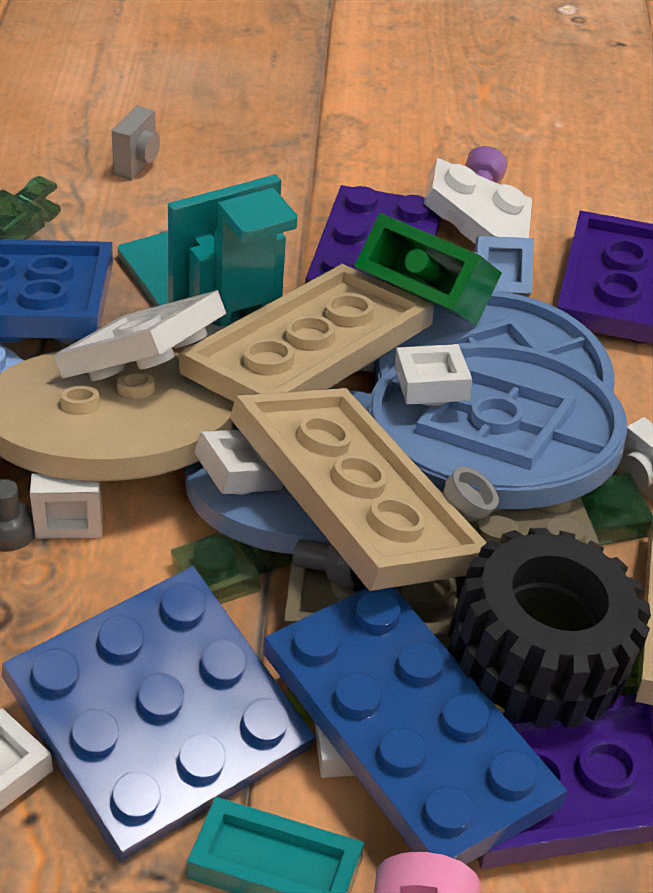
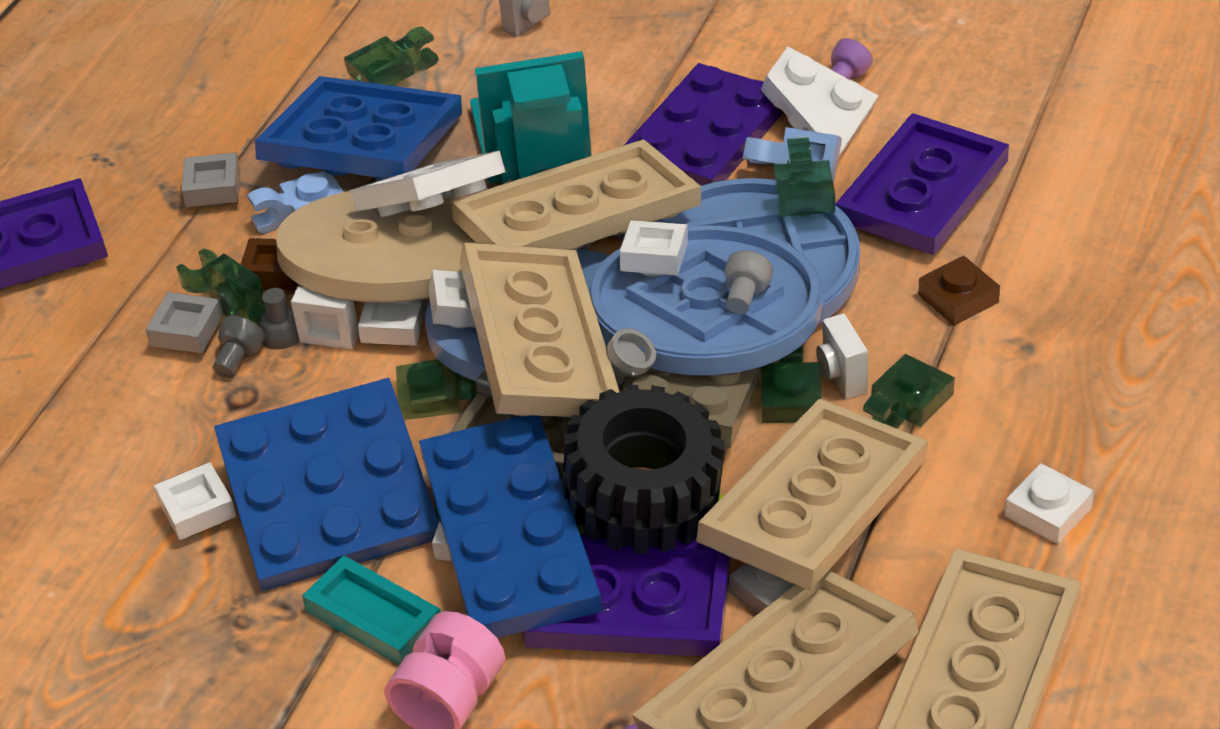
camera: 25 degrees right, 0 degrees up
(144, 501) = (392, 322): none -> white plate
(429, 268) = (709, 154): green brick -> none
(527, 290) = (803, 184): none -> clear green plate
(548, 391) = (746, 276): none -> light grey piece

